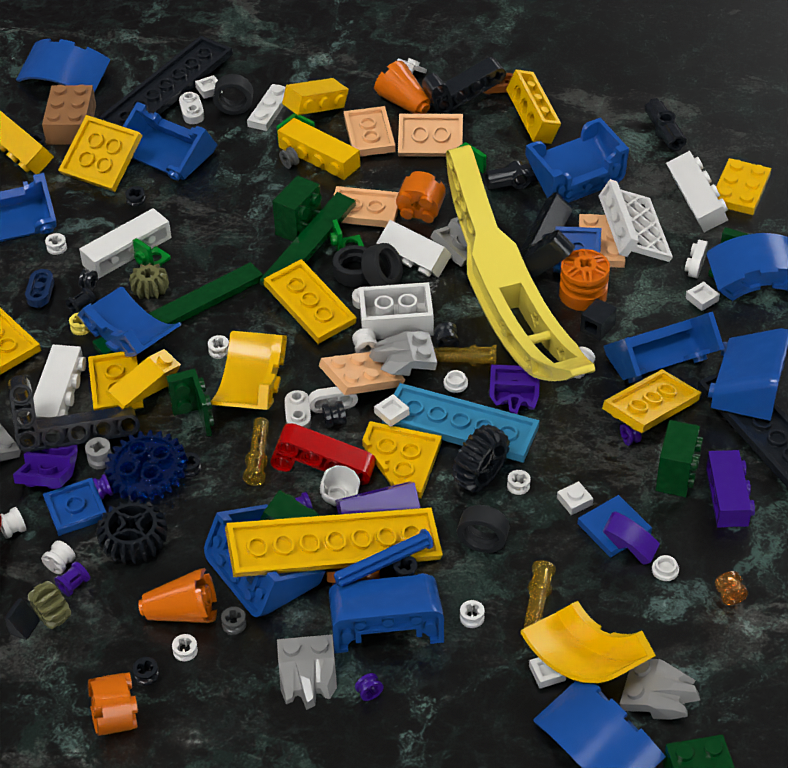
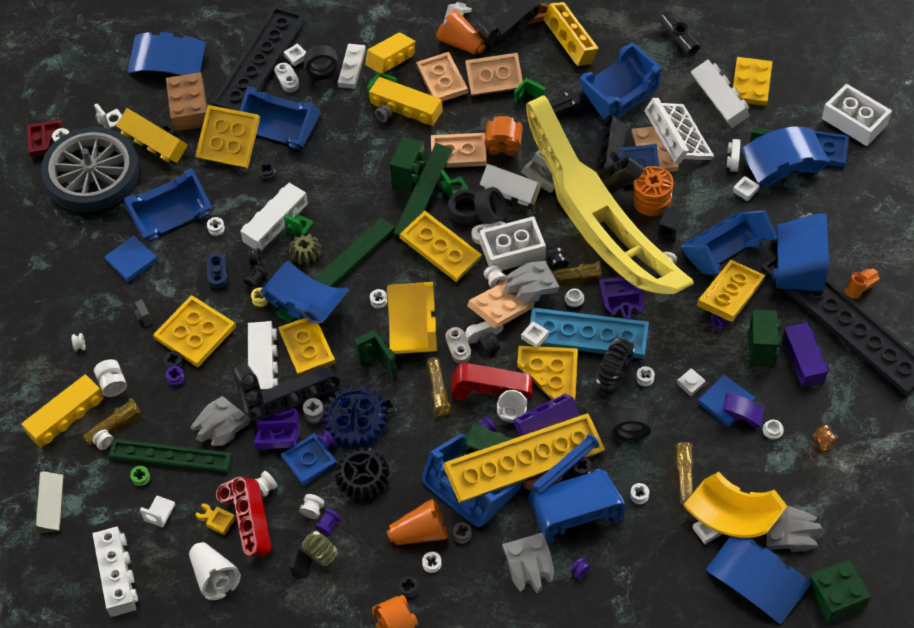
camera: 10 degrees left, 10 degrees up
(144, 379) = (332, 342): yellow slope -> none

